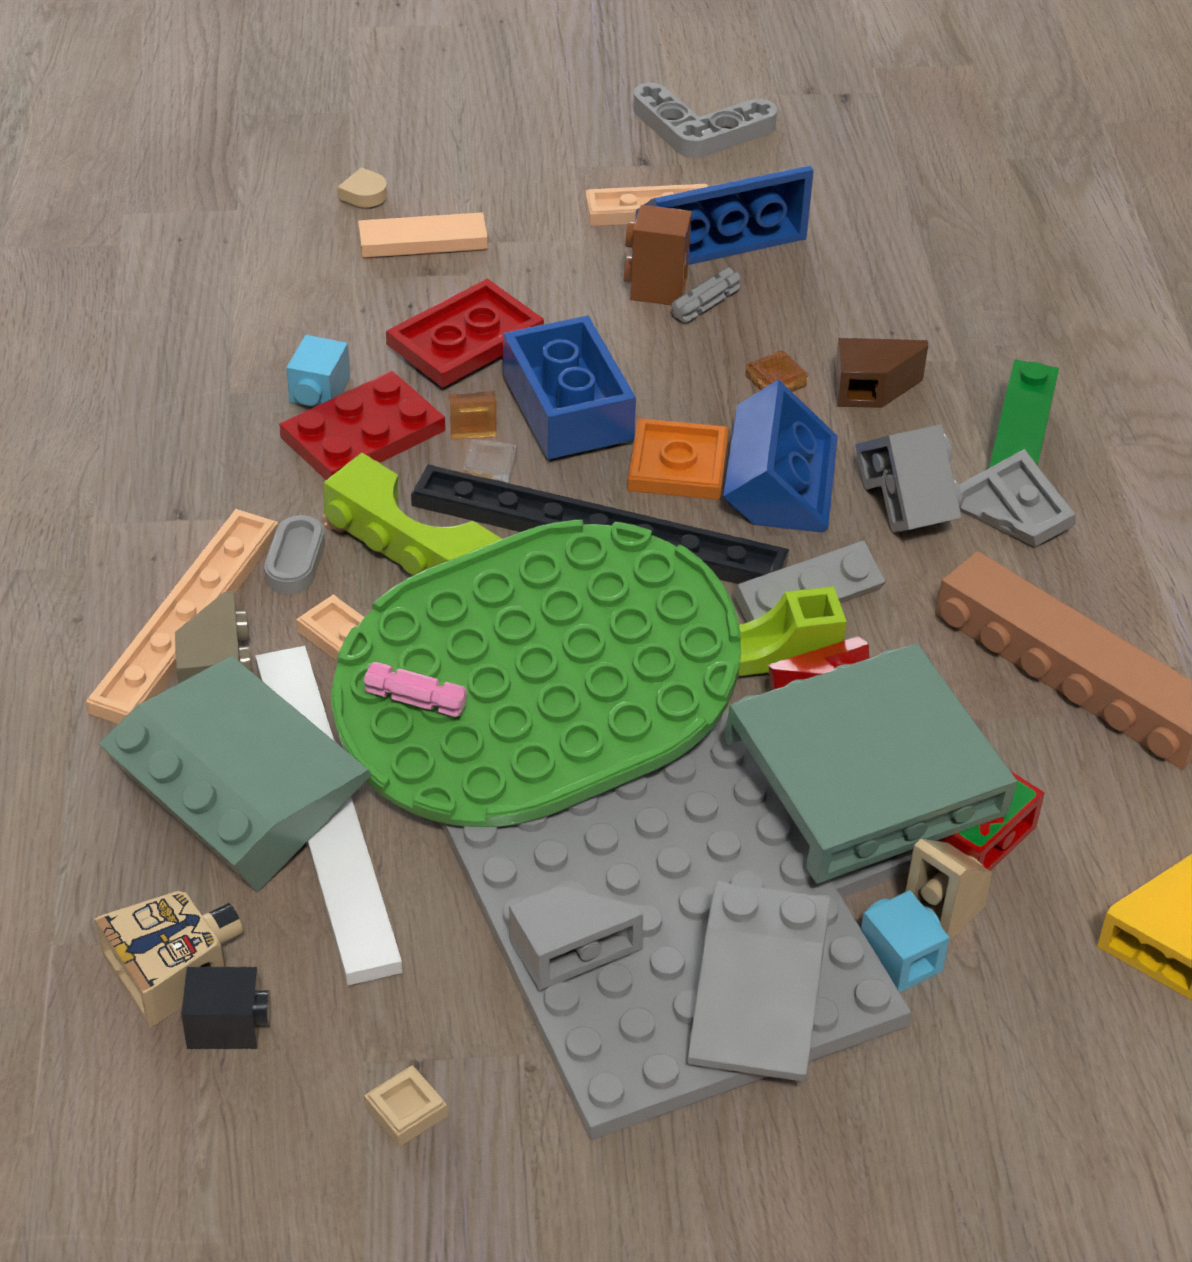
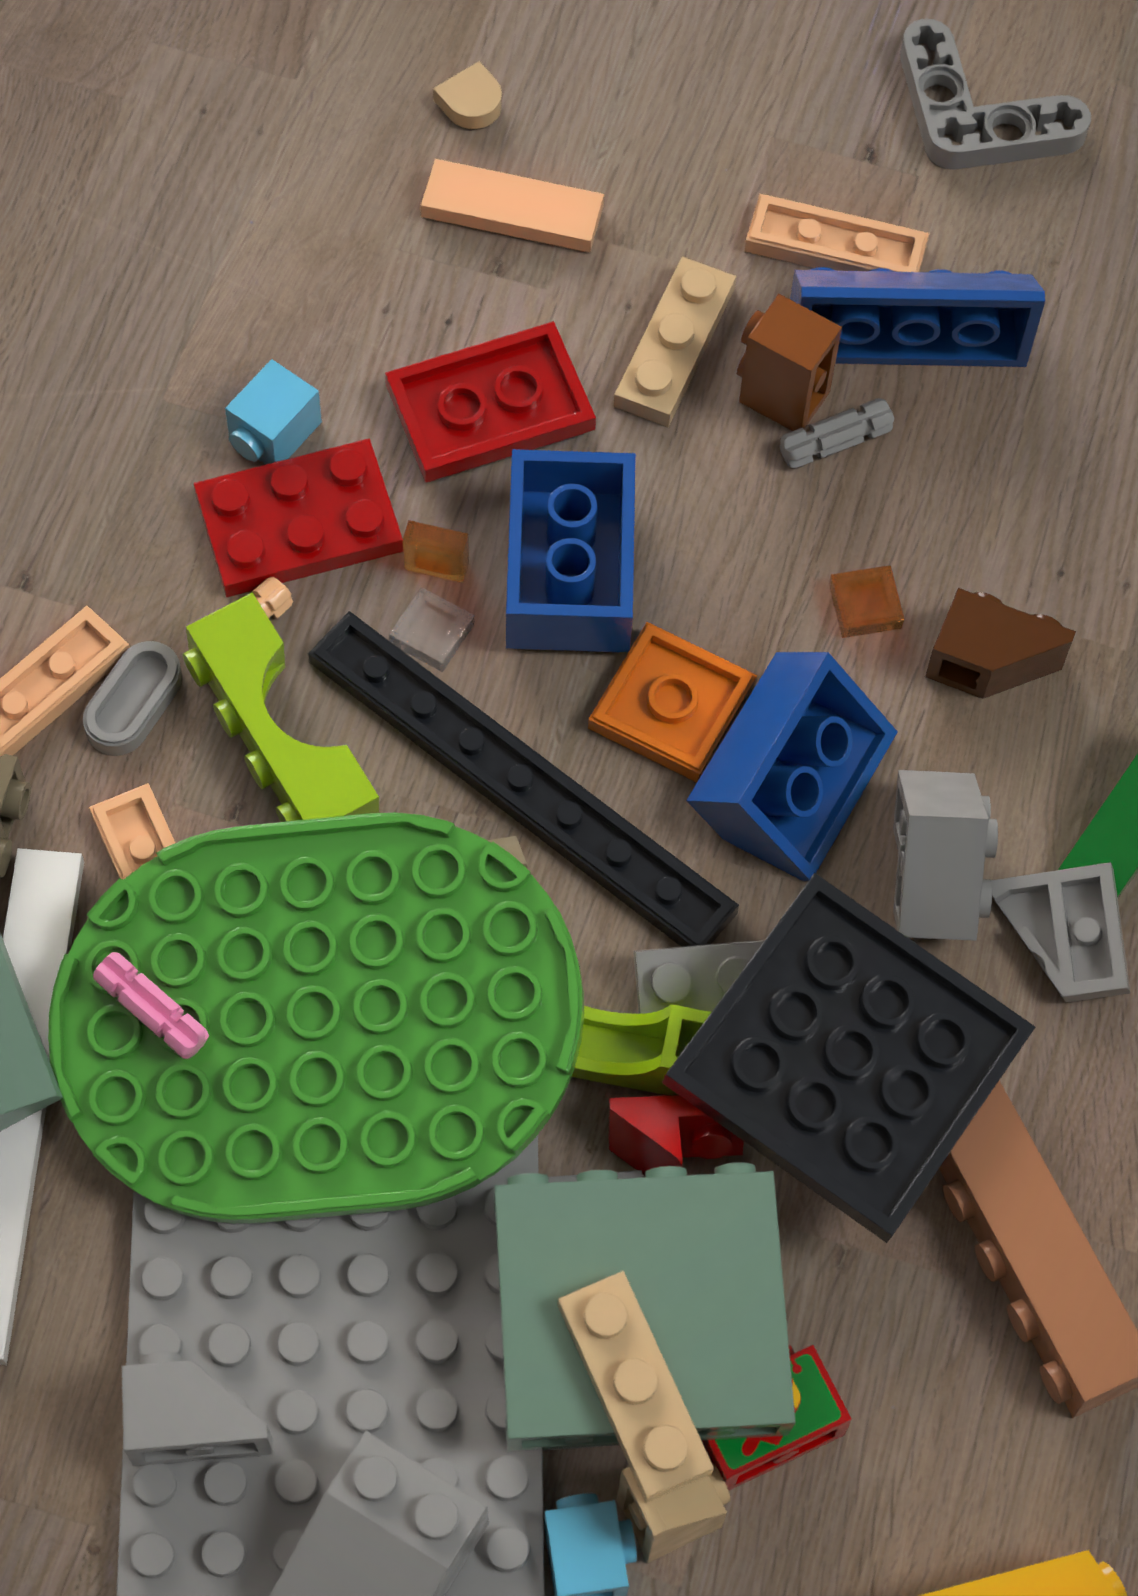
camera: 20 degrees right, 20 degrees up
(571, 275) = (674, 341): none -> tan plate
(897, 787) = (635, 1386): none -> tan plate
(924, 578) = (849, 1057): none -> black plate

